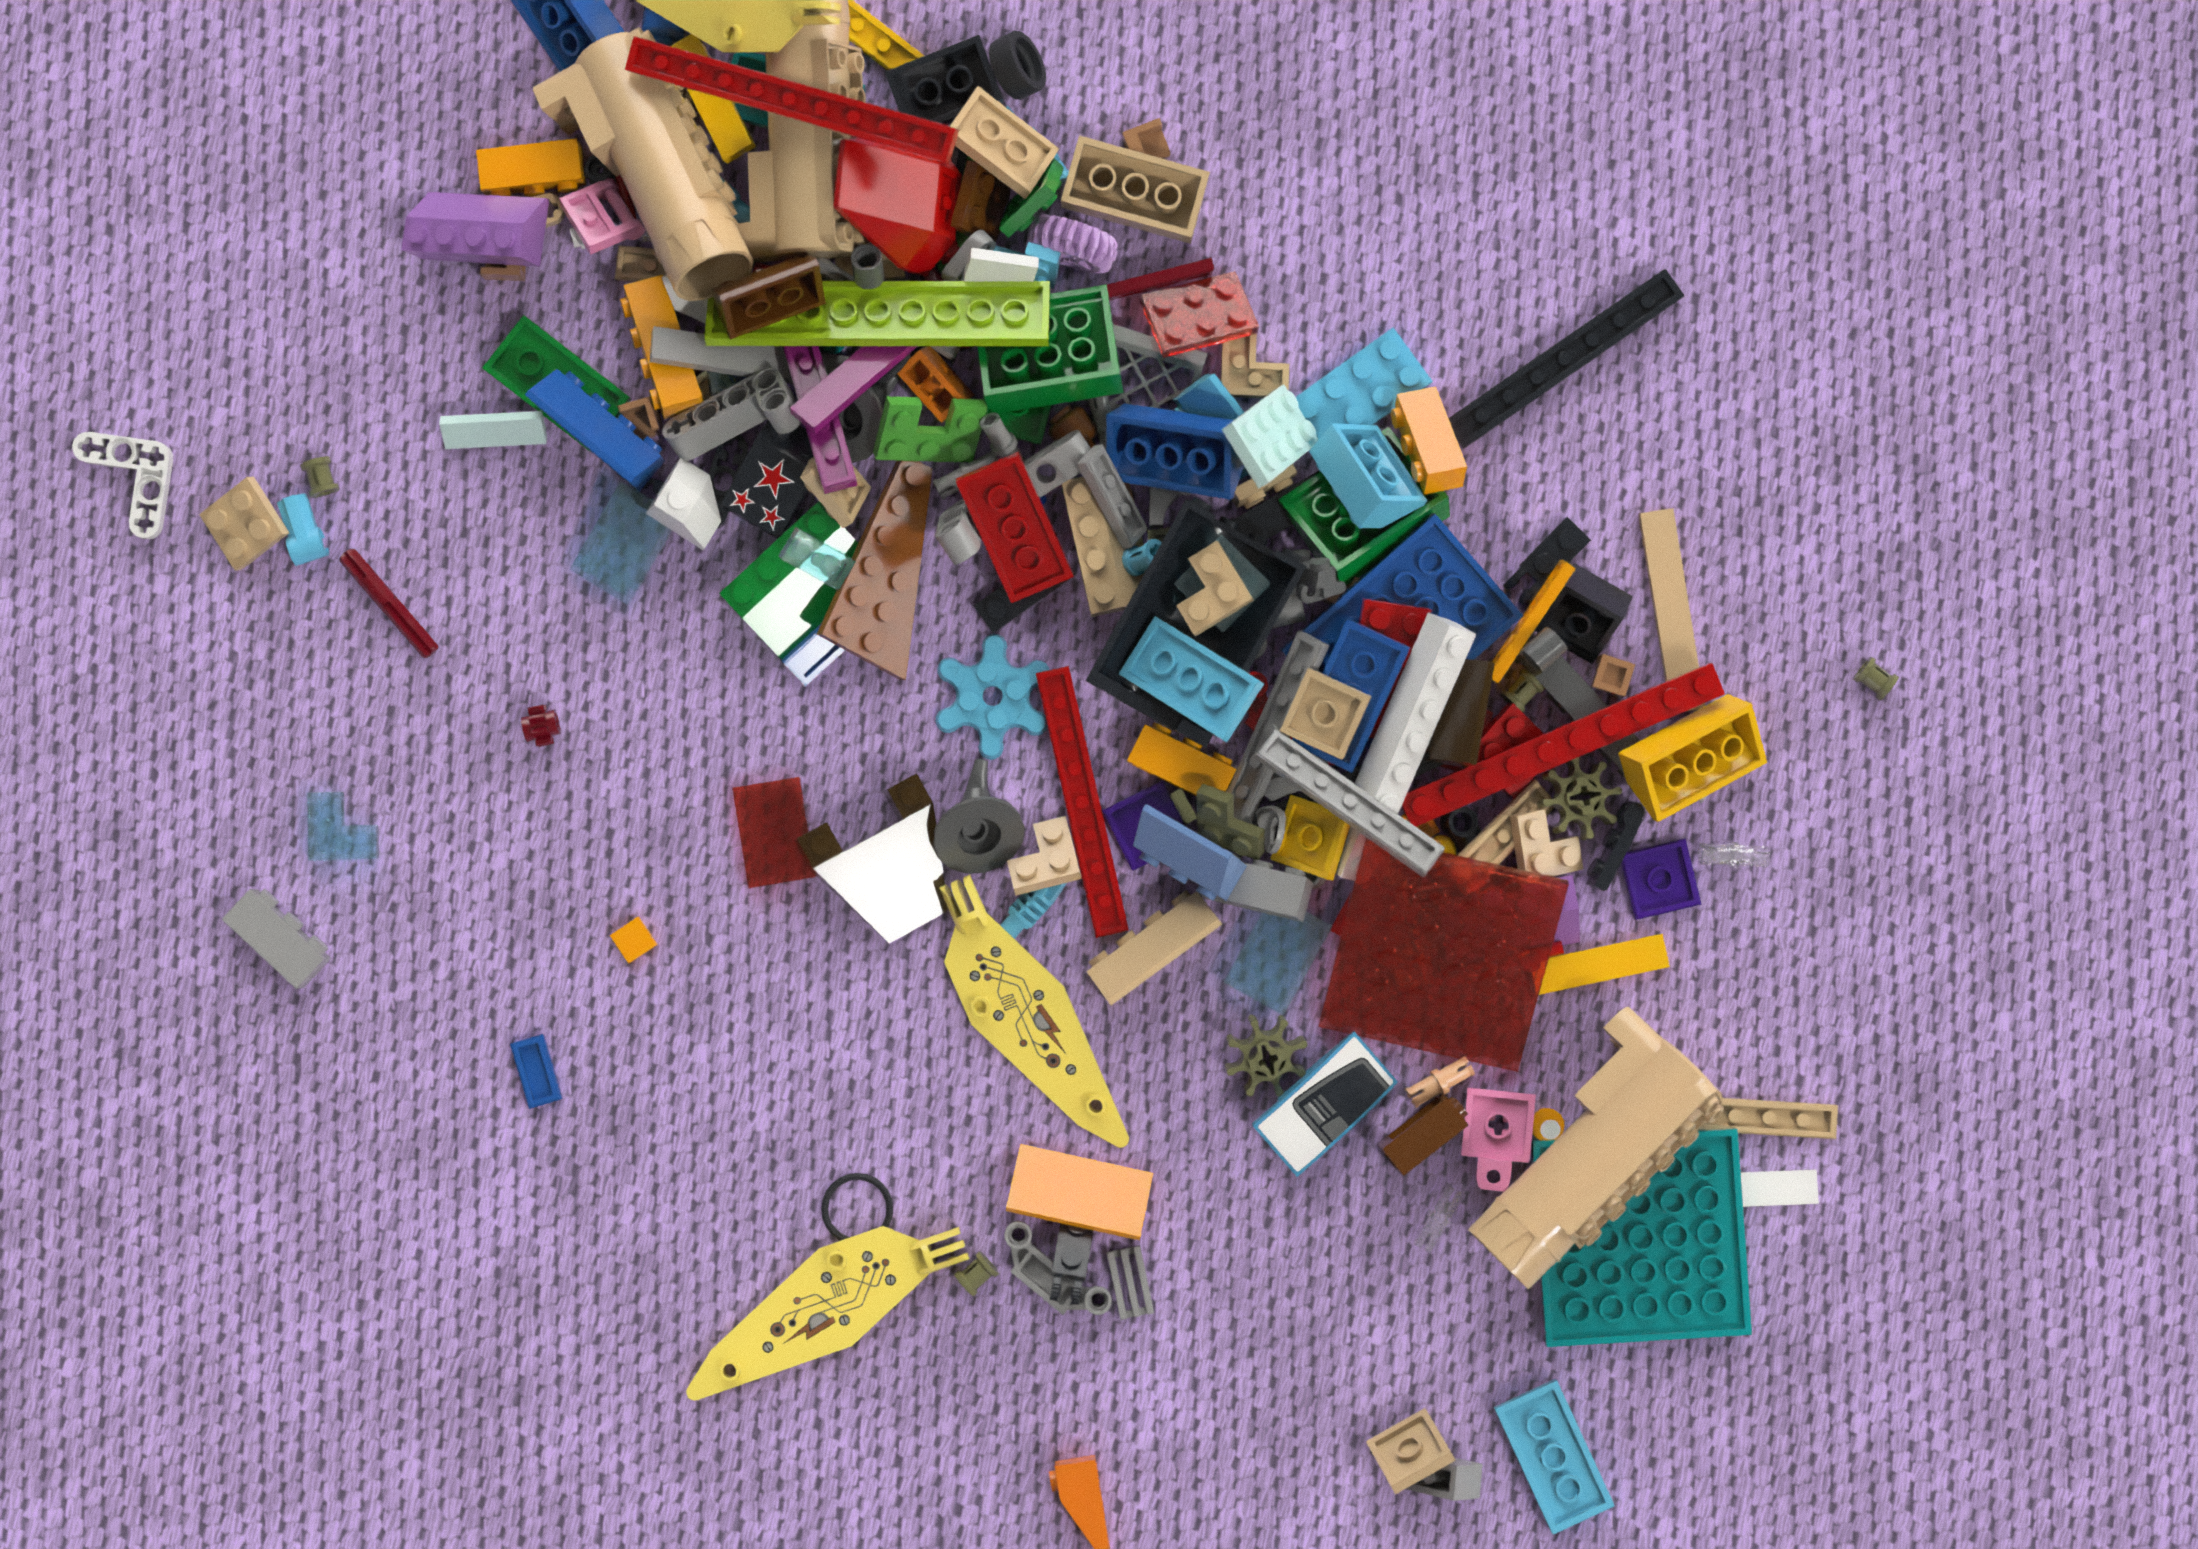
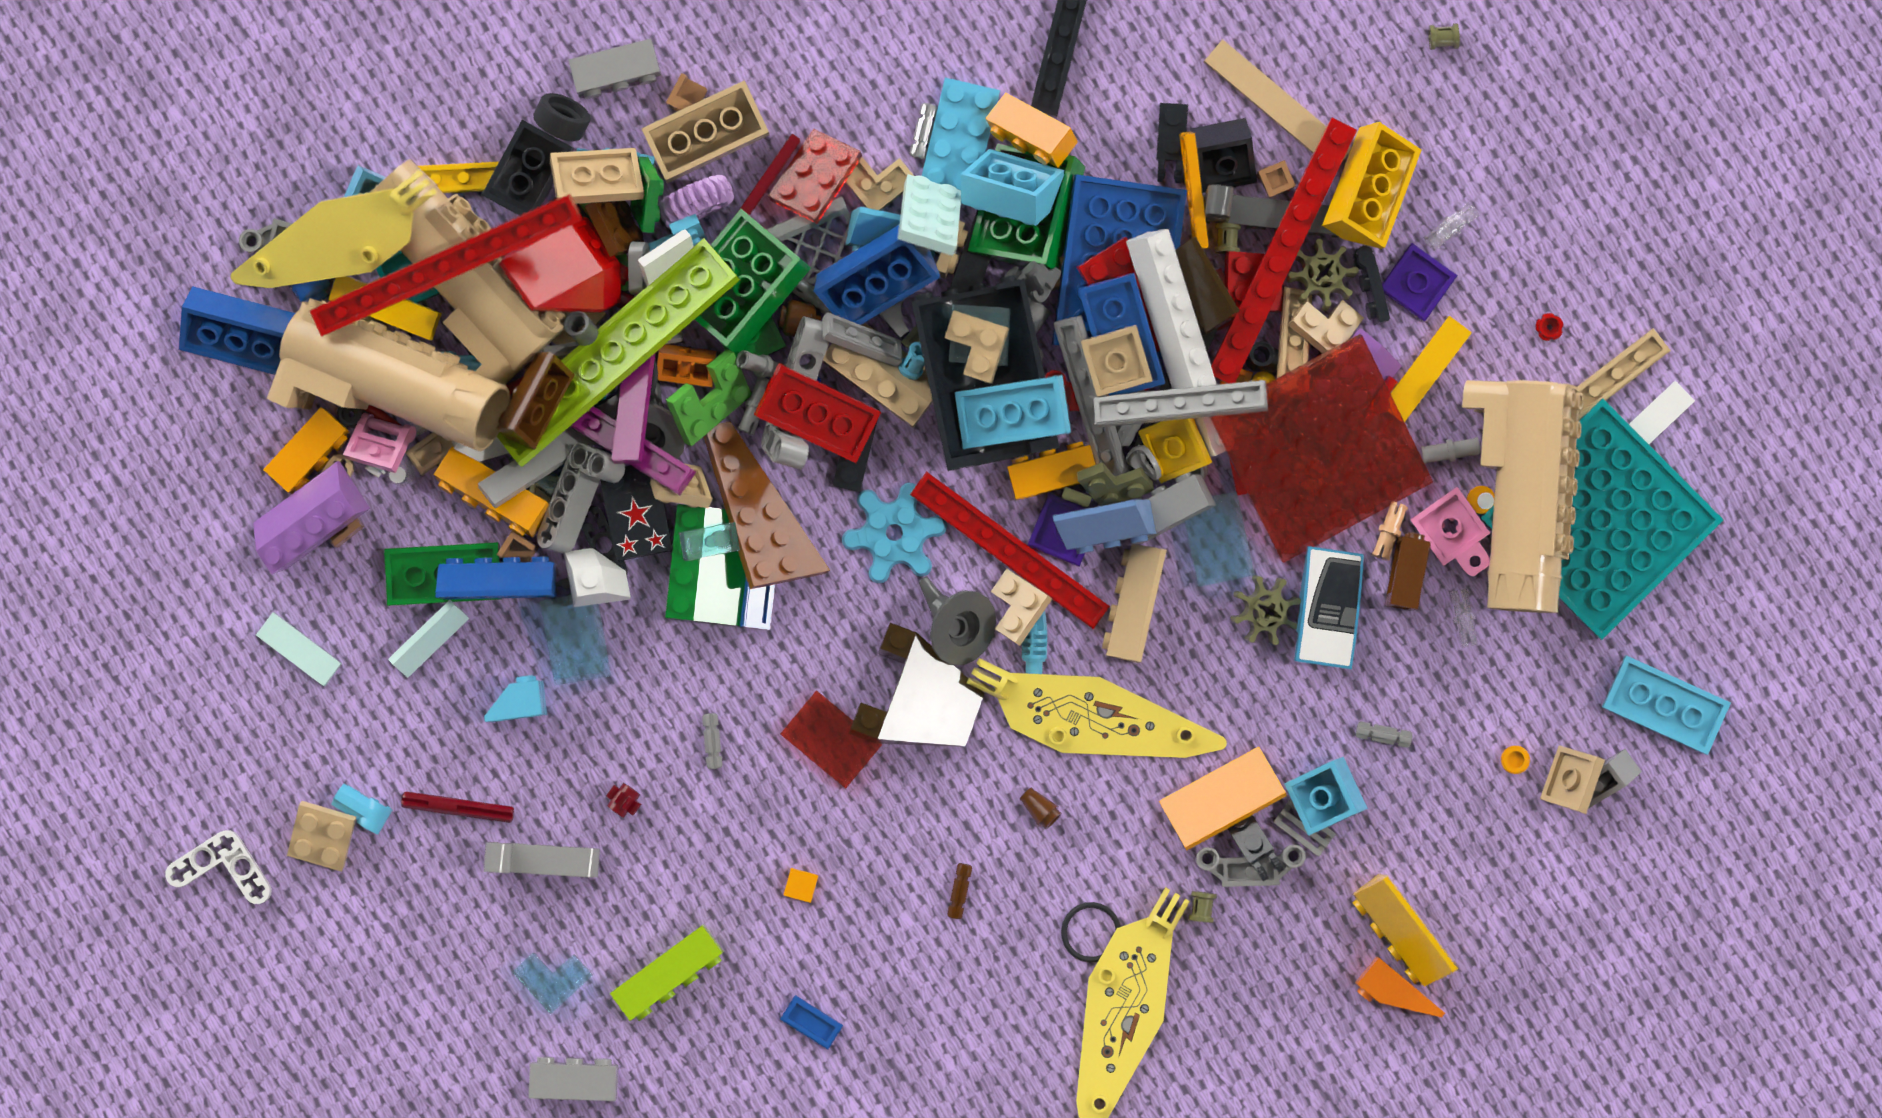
camera: 30 degrees left, 0 degrees up
(319, 477) = (343, 764): olive bush -> none
(370, 339) = (298, 649): none -> light aqua tile
(419, 714) = (541, 859): none -> light grey beam
(444, 914) = (666, 973): none -> lime brick
(525, 555) = (519, 701): none -> medium azure slope
(600, 263) = (404, 475): none -> clear tile
(667, 741) = (712, 741): none -> light grey axle
(771, 1069) = (959, 891): none -> reddish brown axle
(908, 1059) = (1040, 808): none -> reddish brown cone
(1103, 64) = (615, 68): none -> light grey brick
(1138, 1455) = (1403, 930): none -> yellow slope
(1174, 1271) = (1325, 796): none -> medium azure slope
(1275, 1260) = (1384, 734): none -> light grey axle
(1331, 358) = (923, 131): none -> light grey axle
(1374, 1386) = (1515, 759): none -> light orange tile
(1558, 1056) = (1450, 450): none -> light grey pin
(1753, 1022) = (1549, 319): none -> red plate

